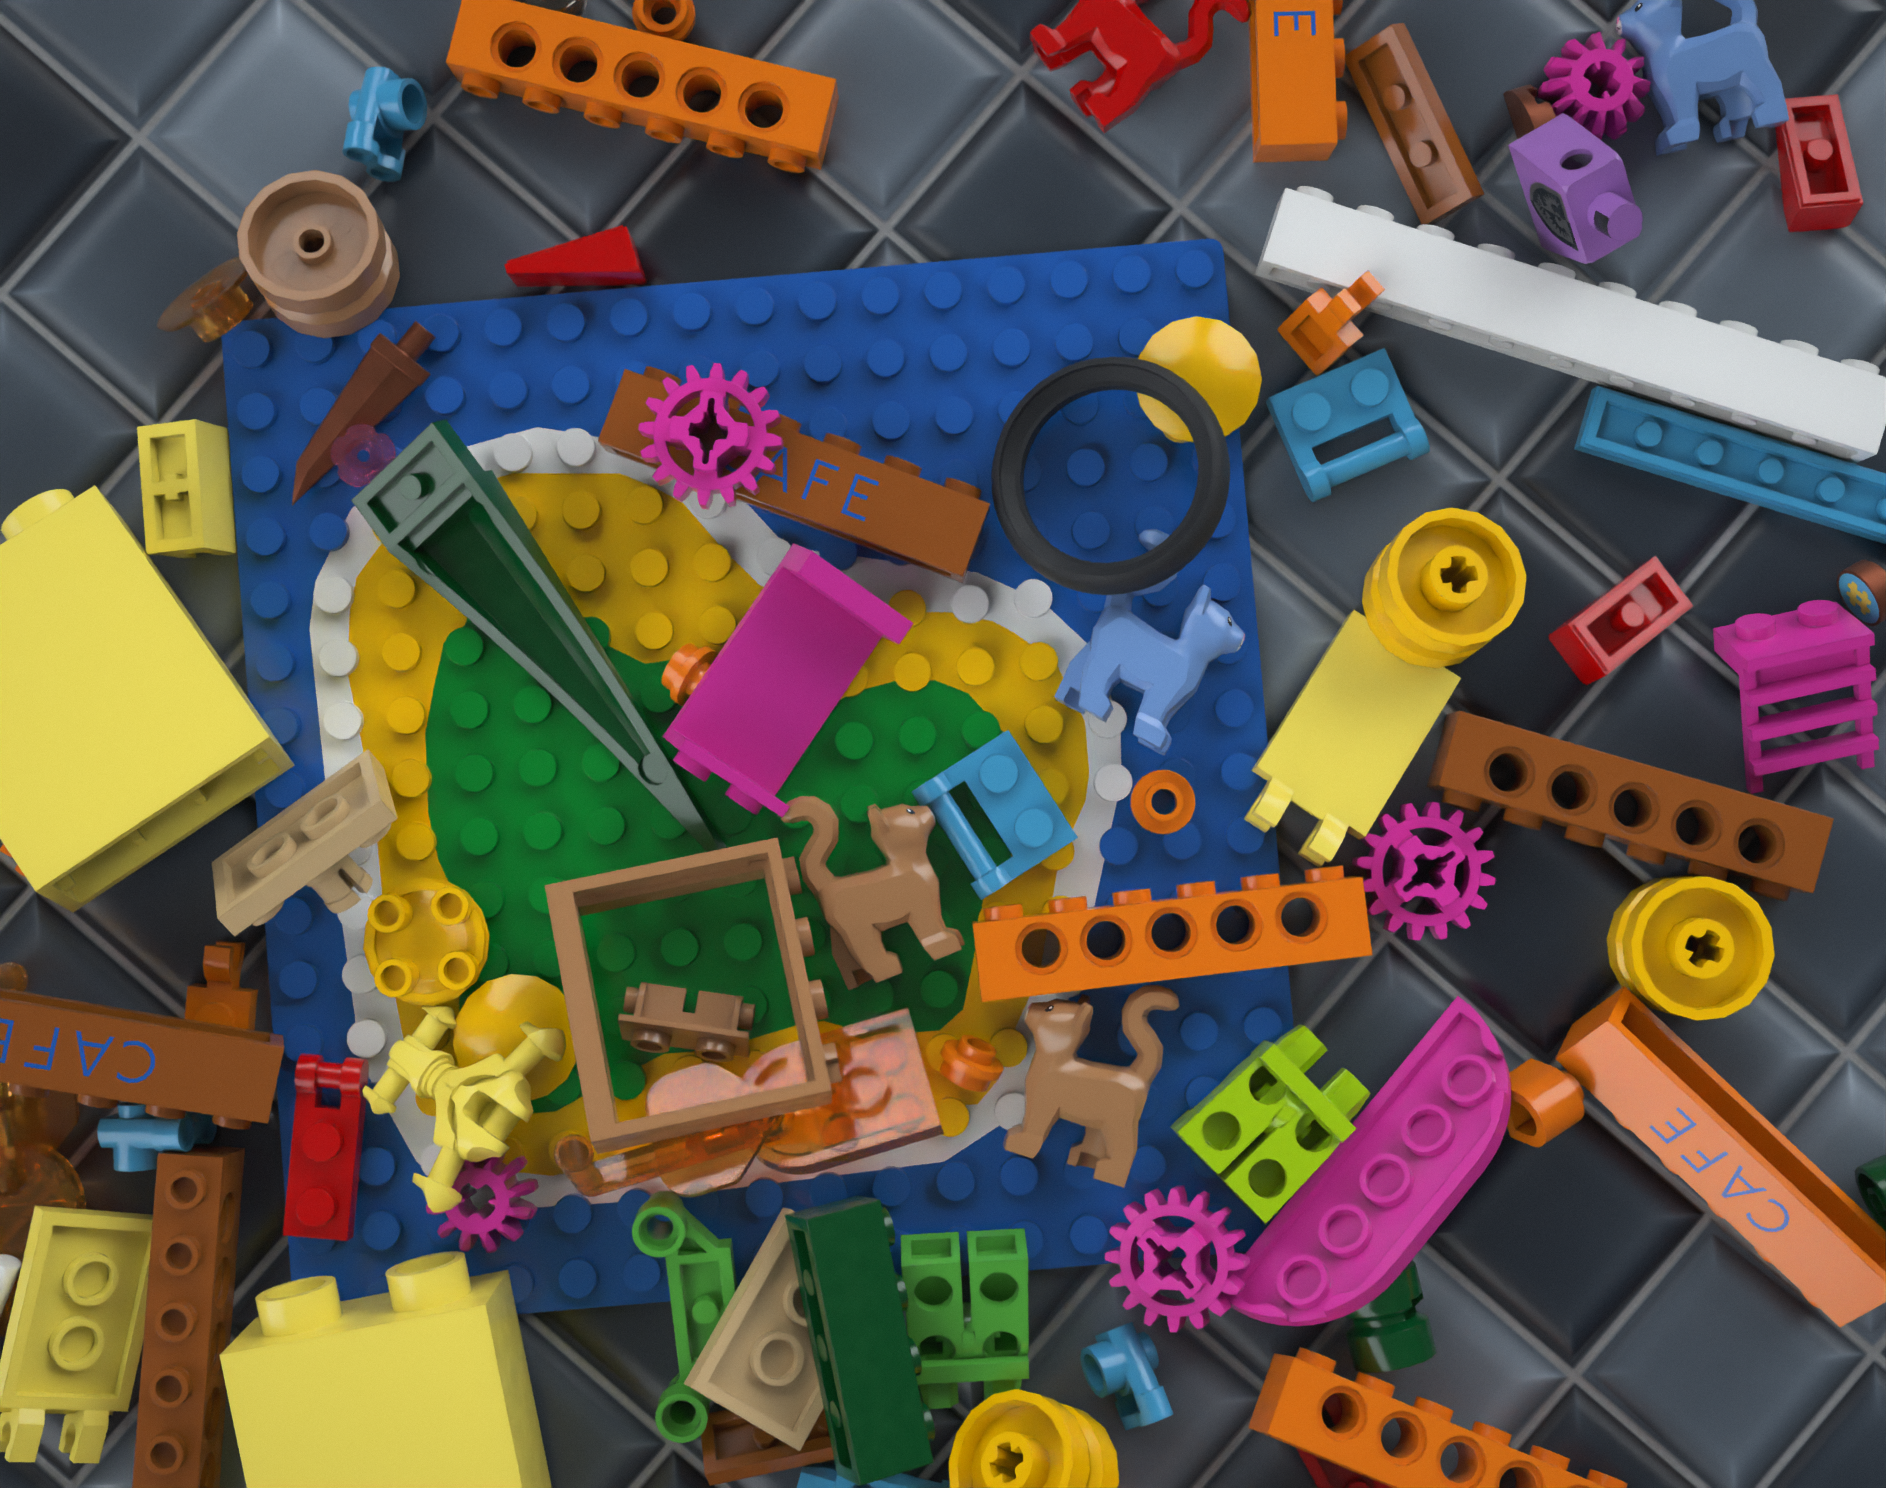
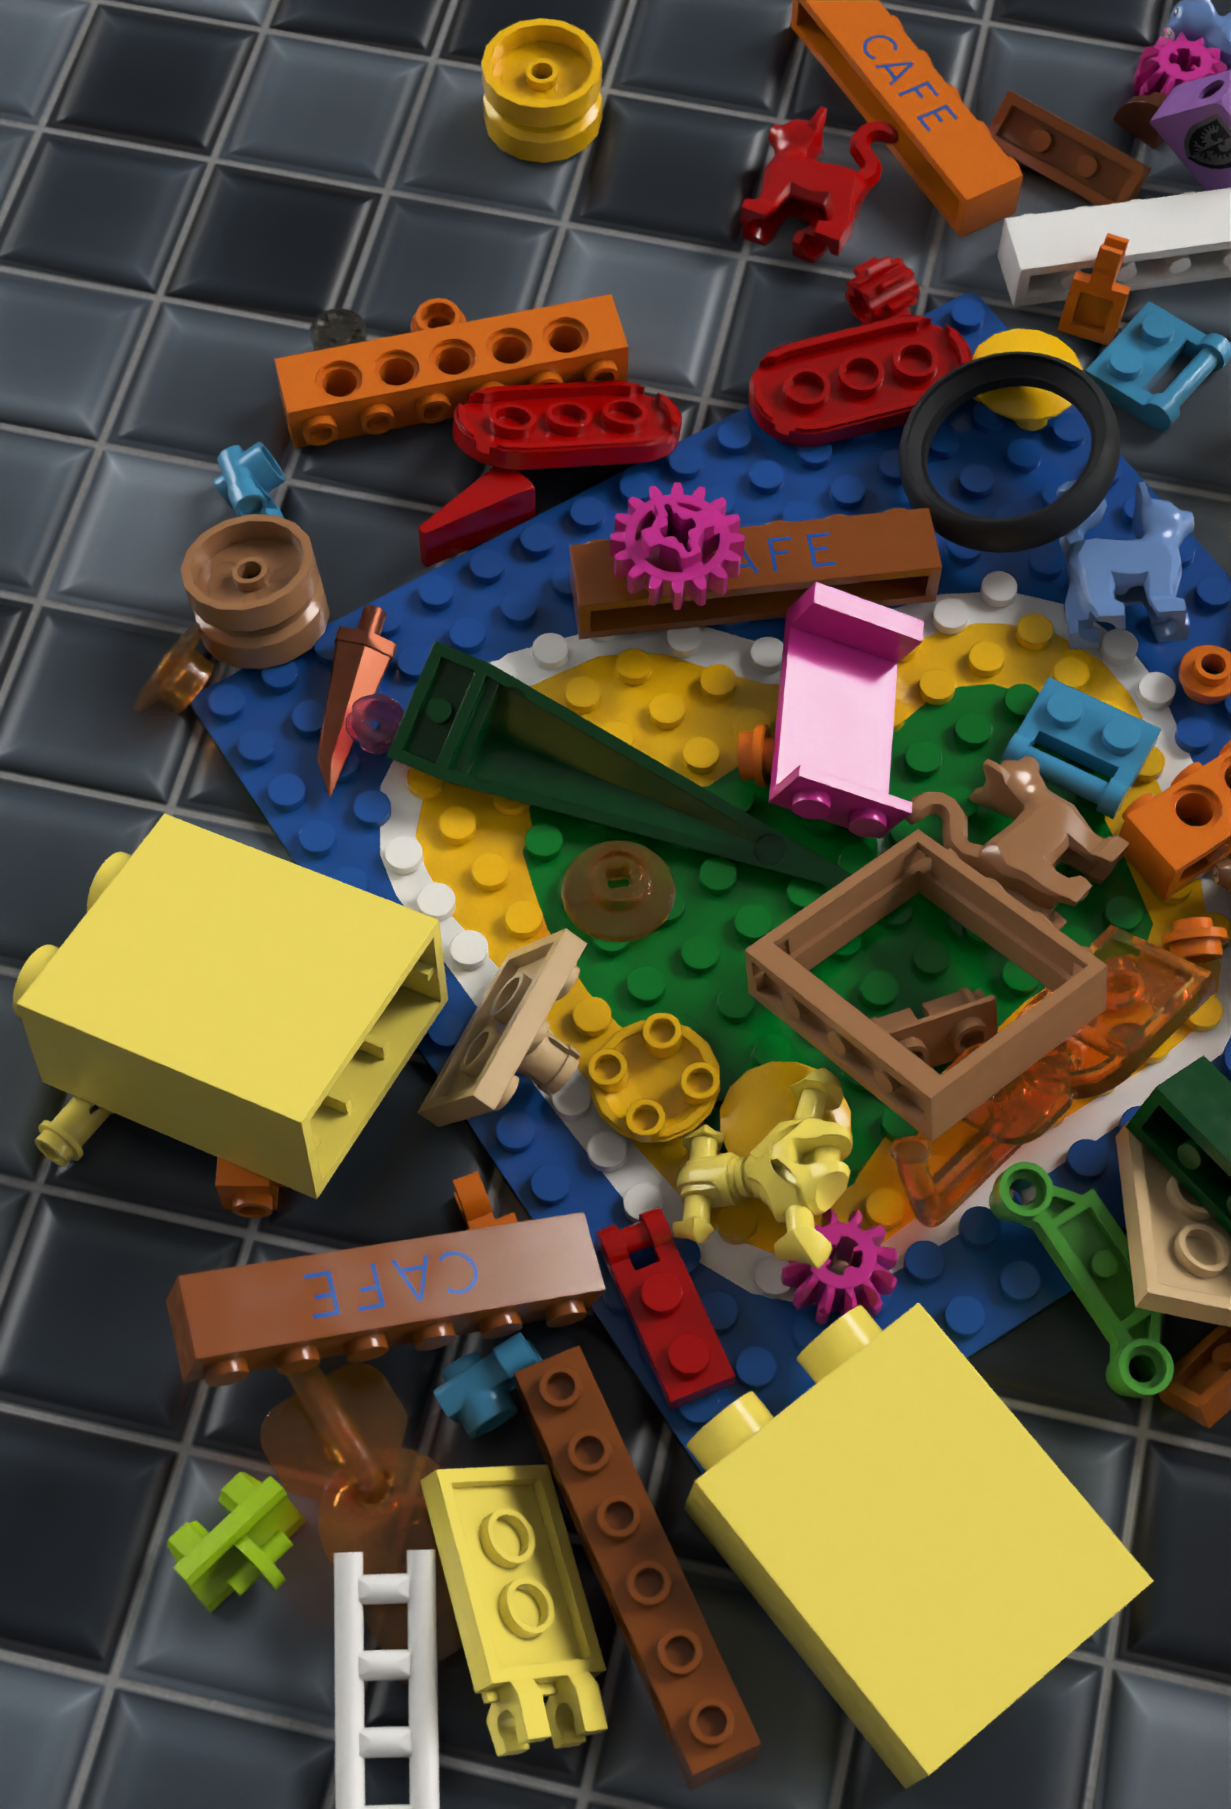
camera: 30 degrees left, 25 degrees down
(187, 489) = (218, 802): light yellow hinge -> none
(529, 744) = (624, 911): none -> clear orange piece
(715, 209) = (566, 425): none -> red tile
(1032, 297) = (852, 379): none -> red tile
(1118, 205) = (881, 290): none -> red gear

